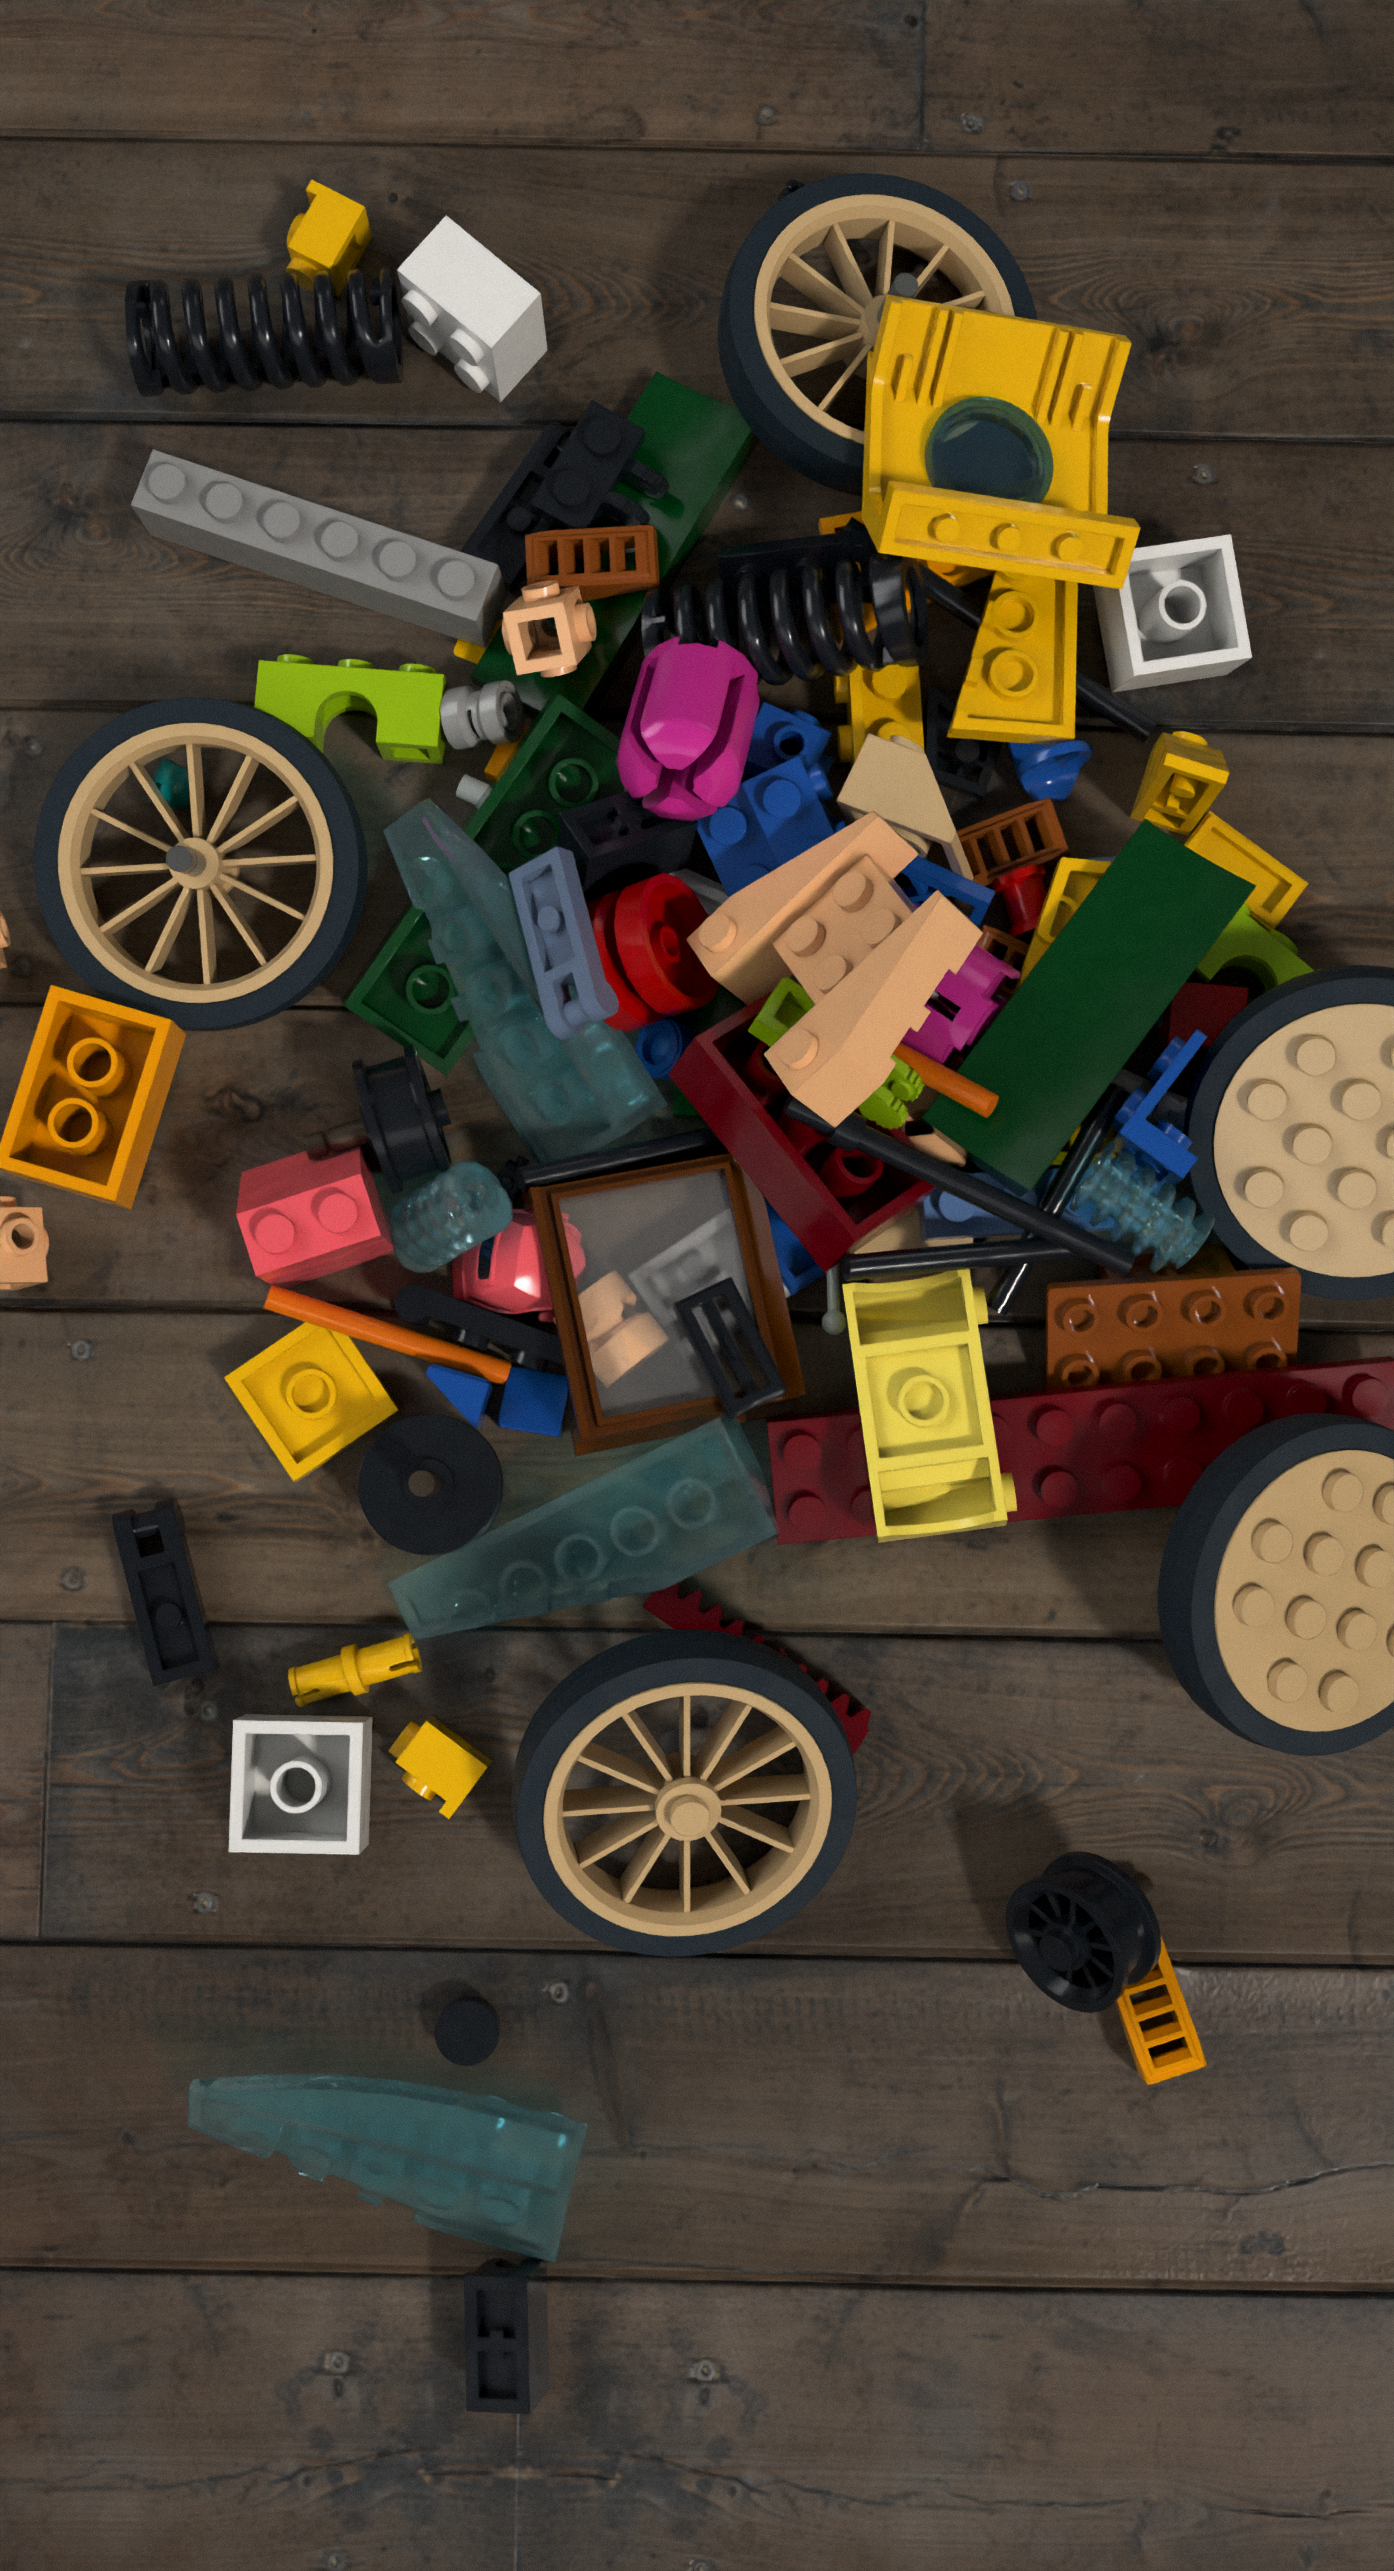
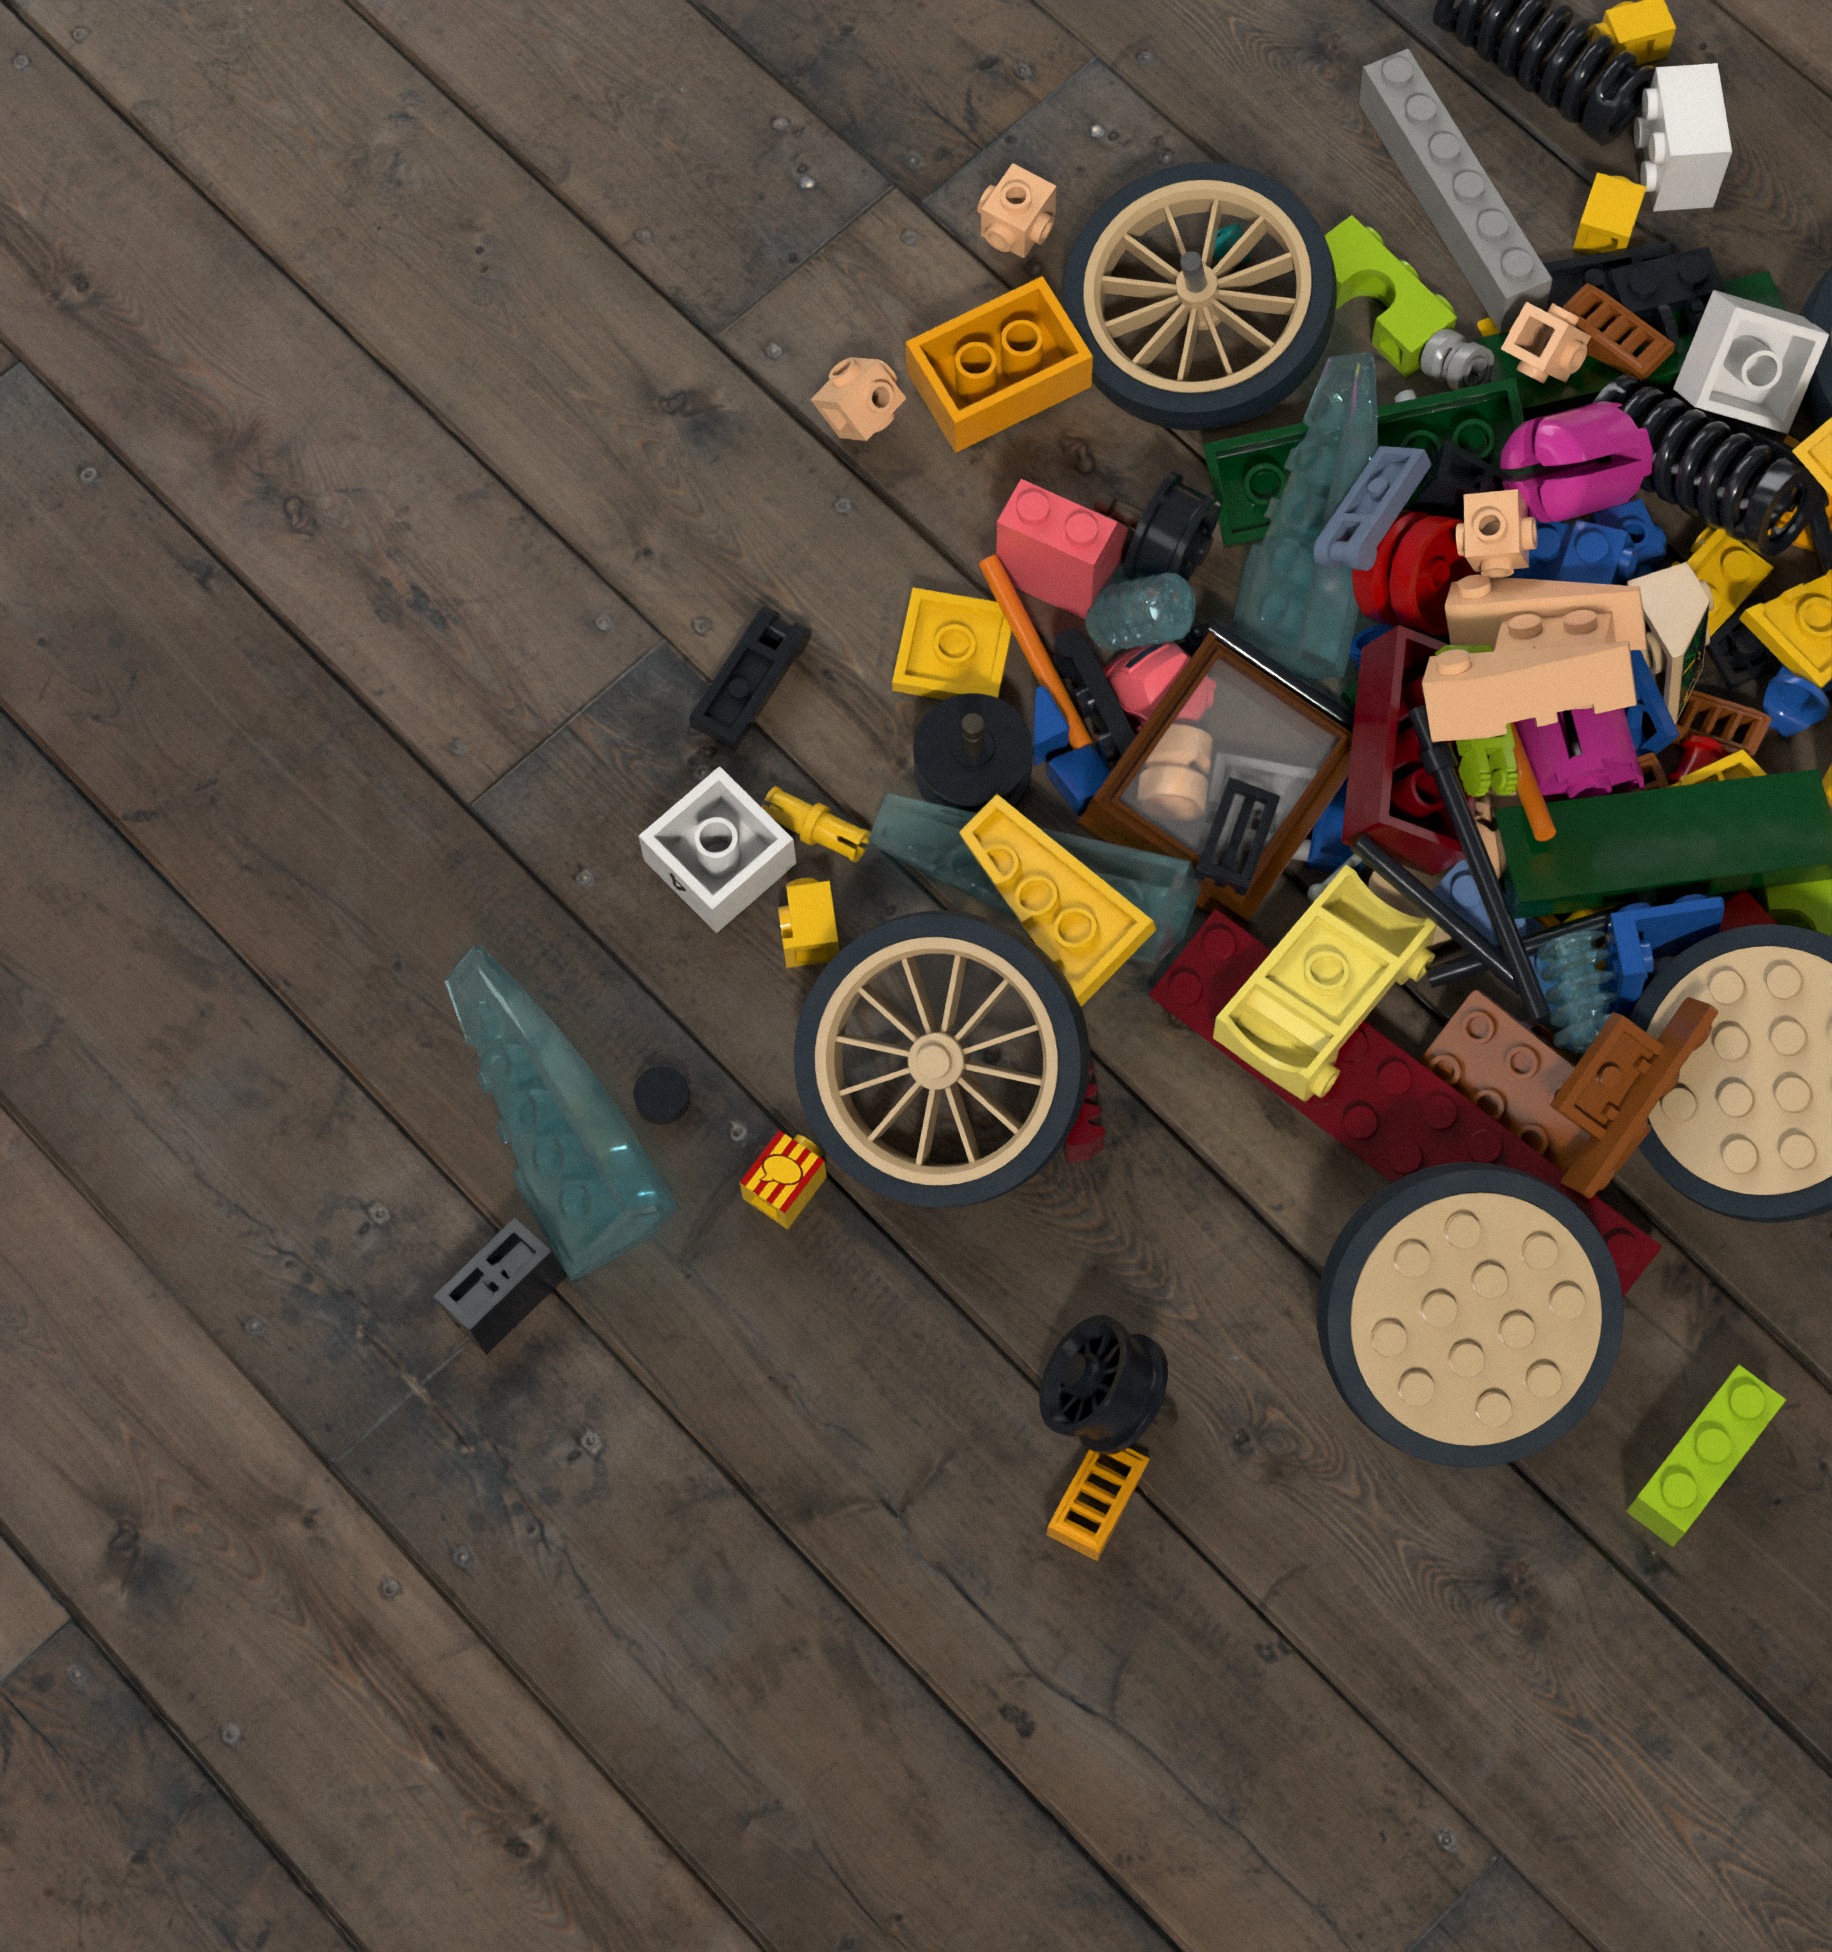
camera: 50 degrees right, 15 degrees down
(475, 445) = (1609, 215): none -> yellow brick
(643, 2005) = (784, 1178): none -> yellow brick
(651, 1562) = (1056, 898): none -> yellow wing
(670, 862) = (1496, 533): none -> light nougat brick
(741, 485) = (1750, 361): none -> white brick
(1261, 1267) = (1621, 1084): none -> dark orange bracket

